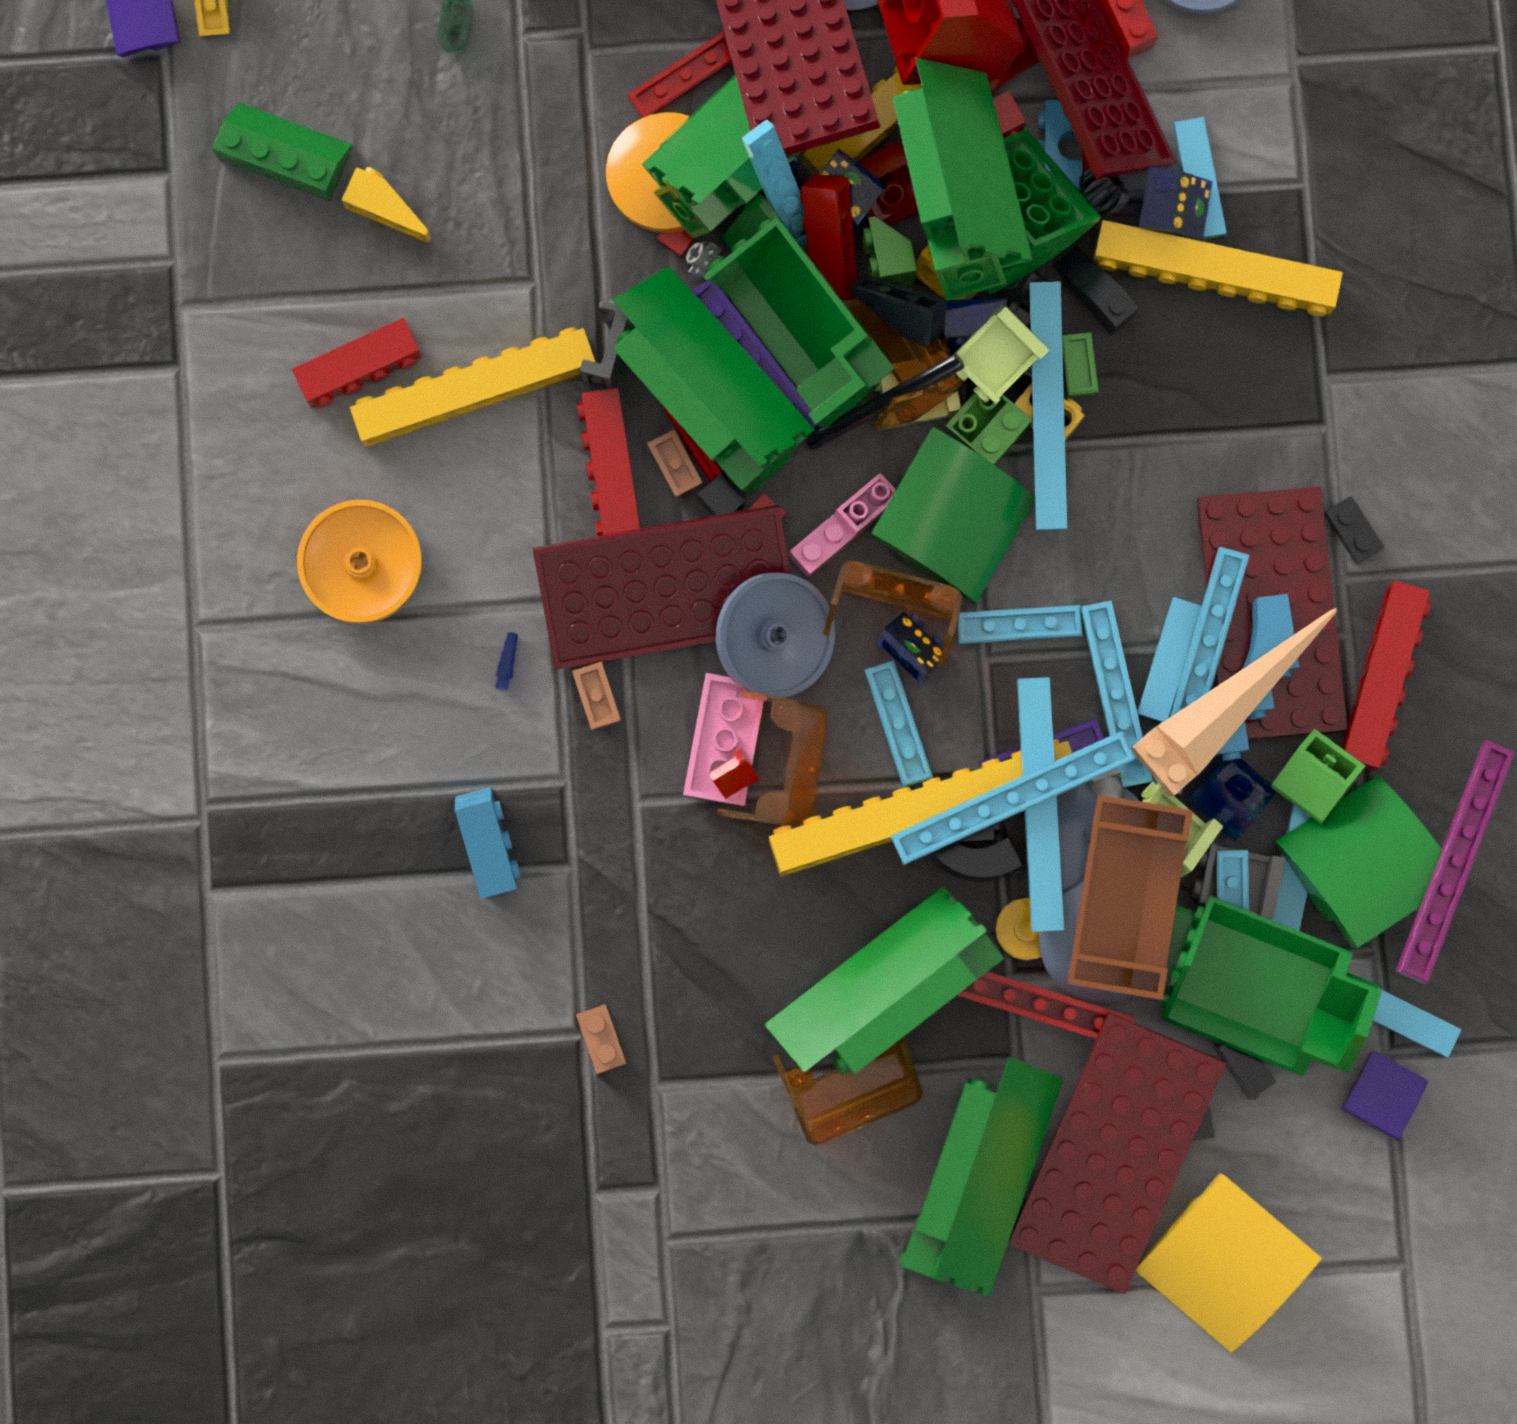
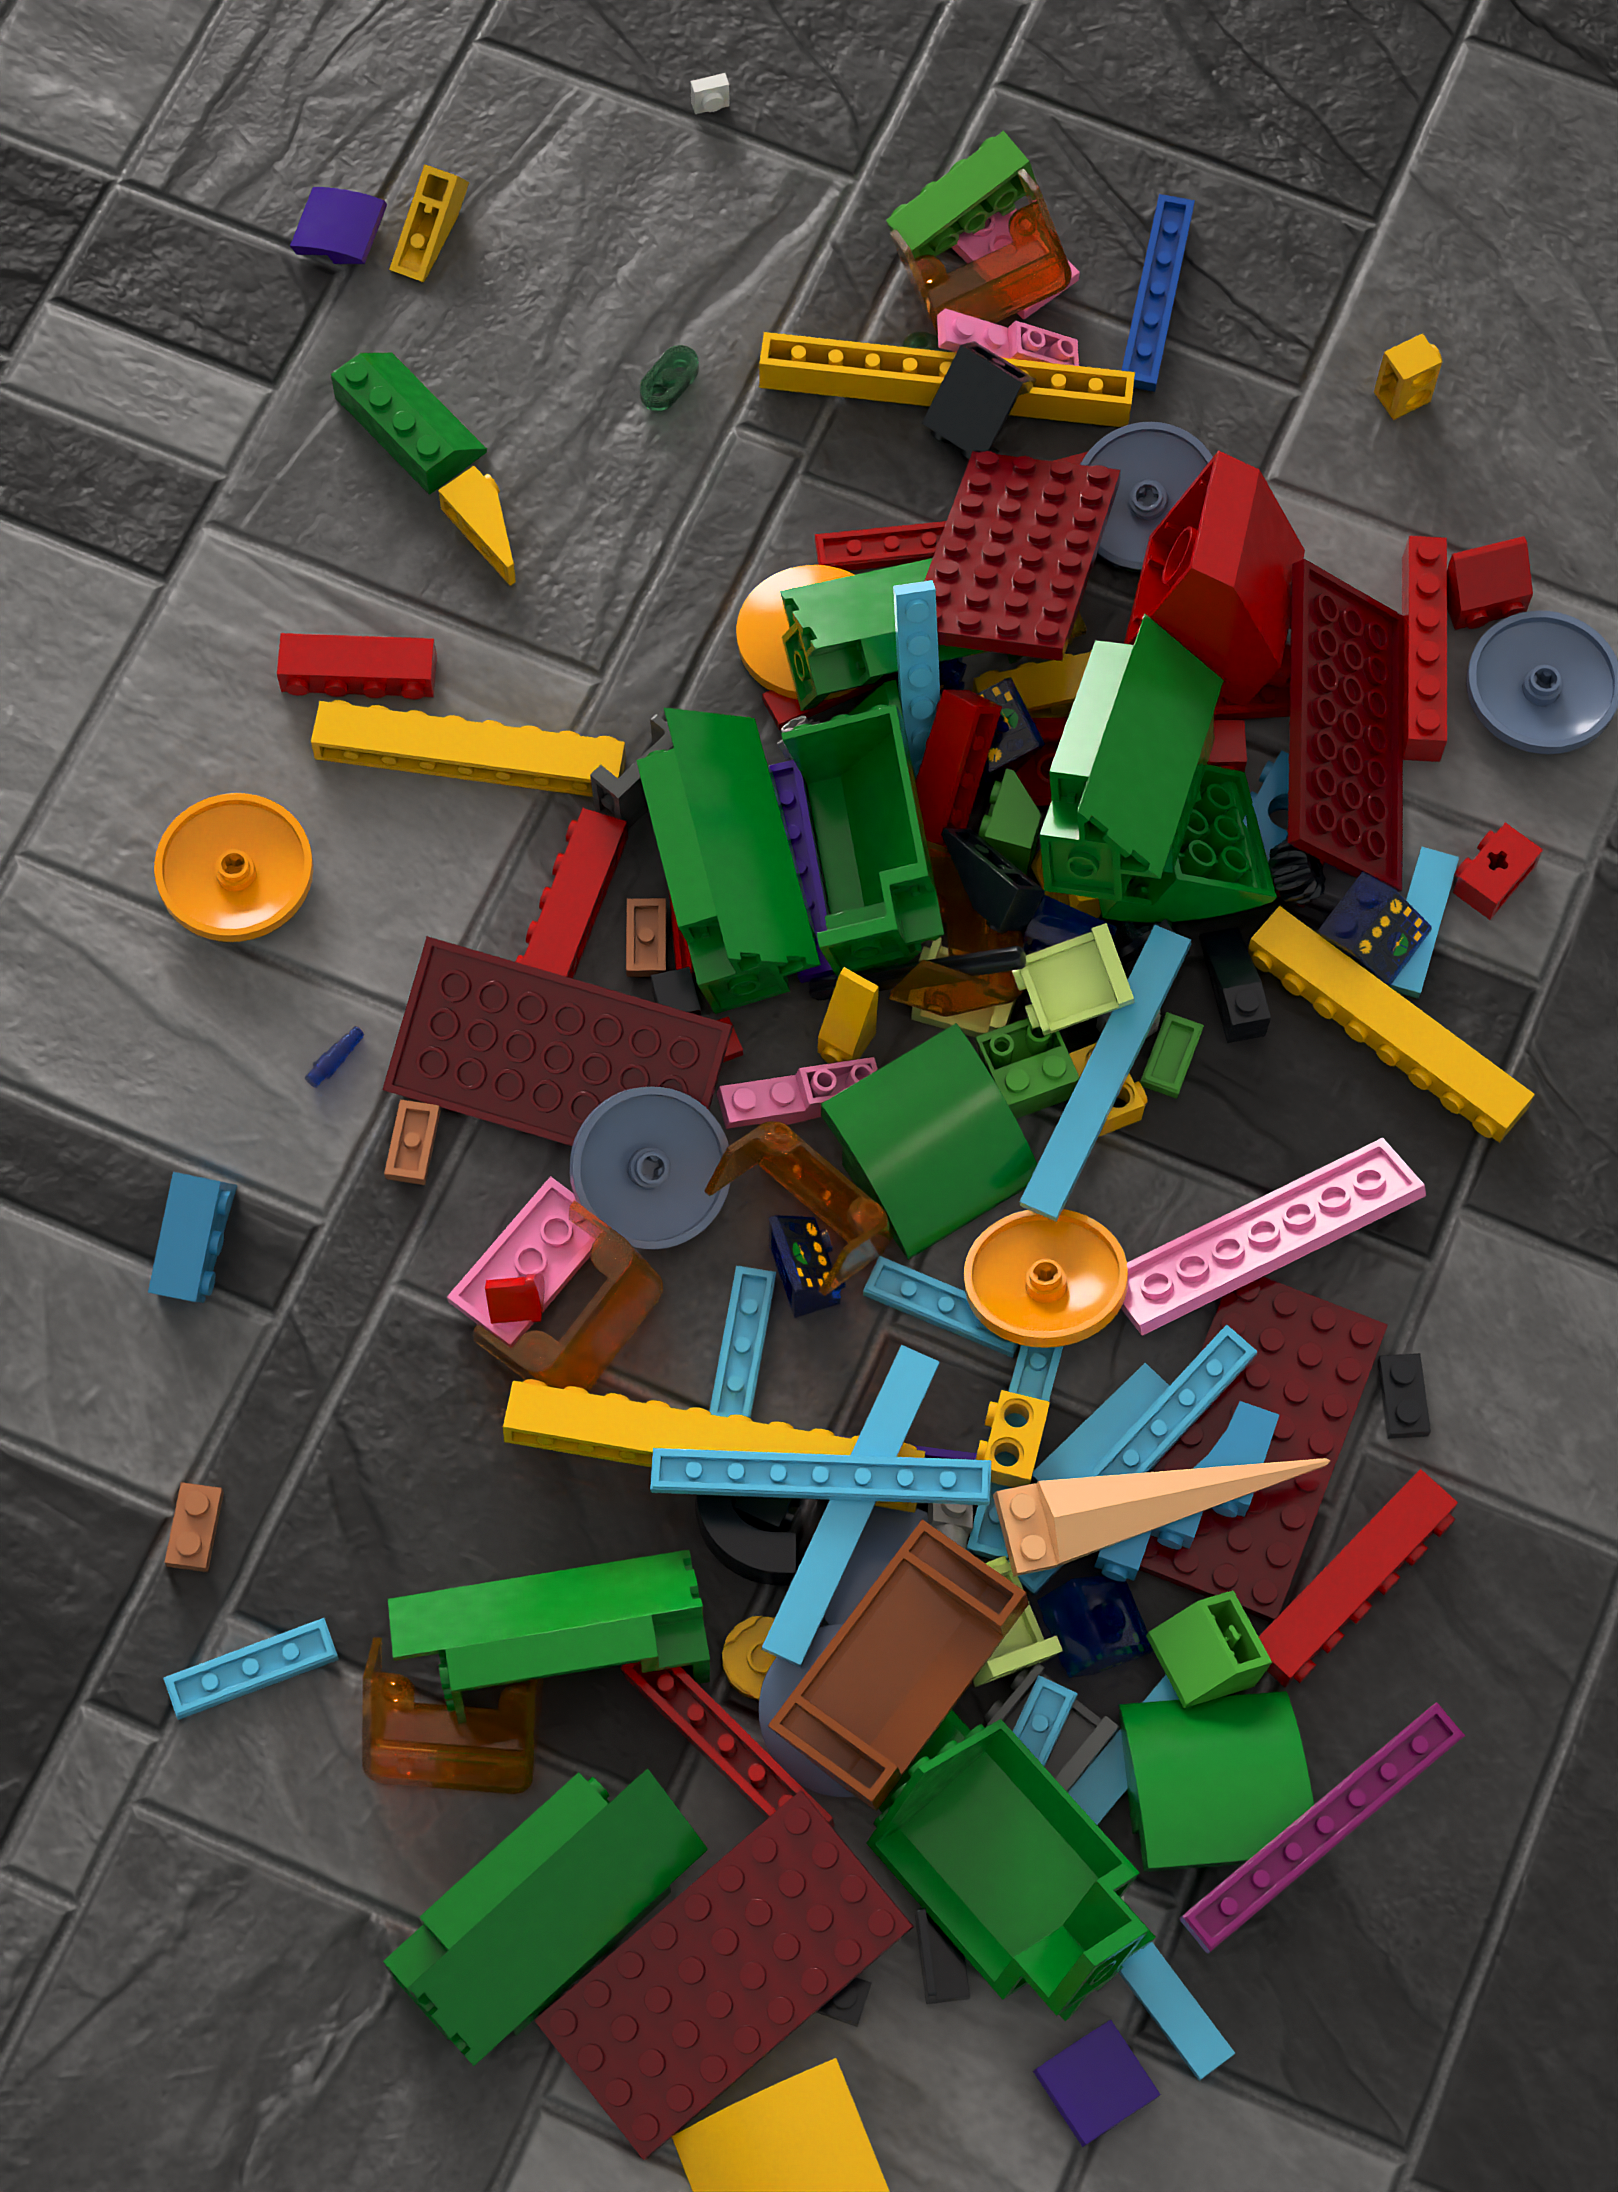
camera: 30 degrees right, 15 degrees down
(693, 1113) = (251, 1668): none -> medium azure tile
(853, 460) = (849, 1019): none -> yellow slope
(1080, 574) = (1045, 1278): none -> light orange dish
(1127, 699) = (1019, 1441): none -> yellow brick
(1209, 467) = (1267, 1234): none -> bright pink plate
(1244, 100) = (1514, 861): none -> red brick

